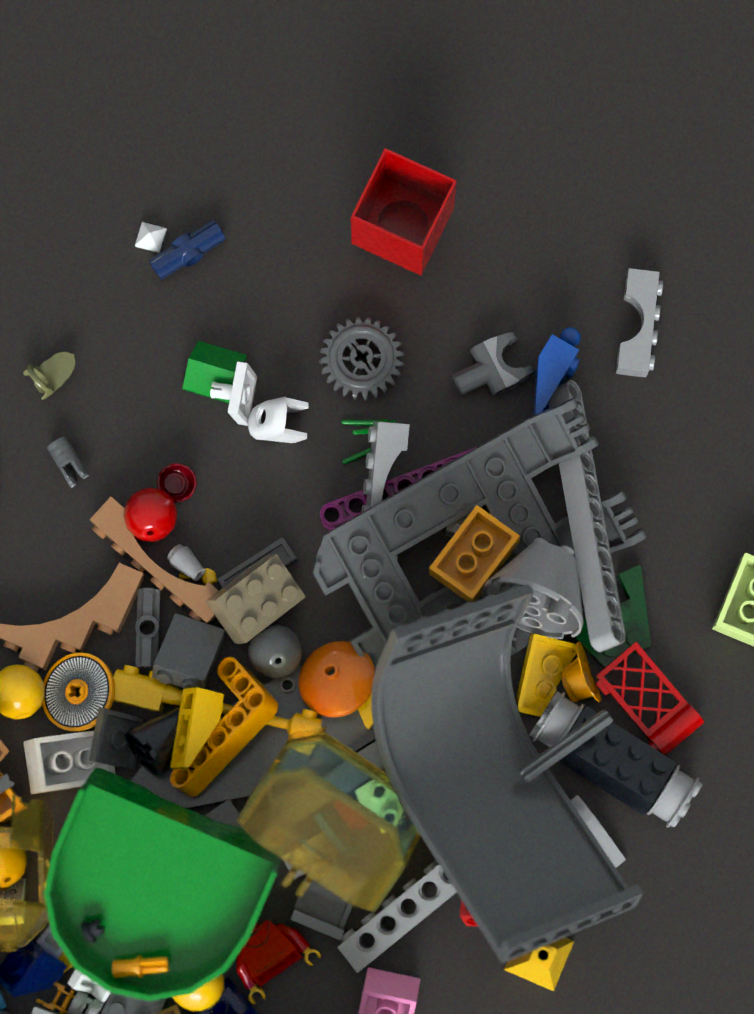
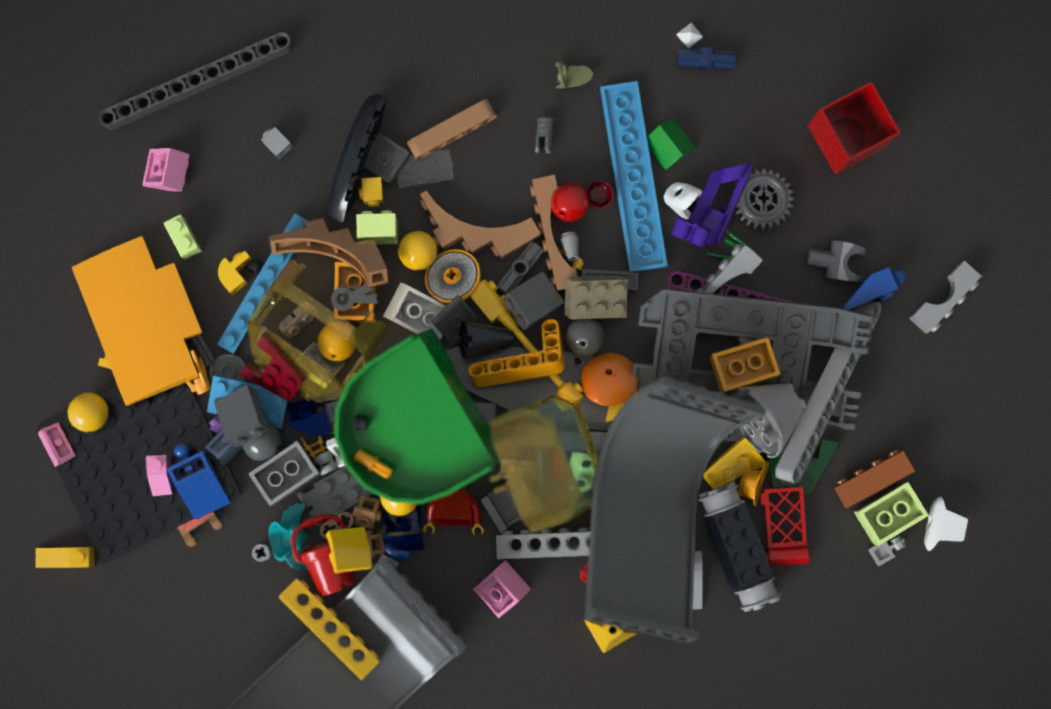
camera: 35 degrees right, 5 degrees up
(197, 719) = (510, 343): yellow slope -> none
(201, 436) = (633, 177): none -> dark azure plate
(239, 394) = (674, 168): white tile -> none
(319, 429) = (707, 224): none -> dark purple panel
(566, 745) = (716, 518): dark grey axle -> none
(706, 575) = (874, 478): none -> dark orange wedge

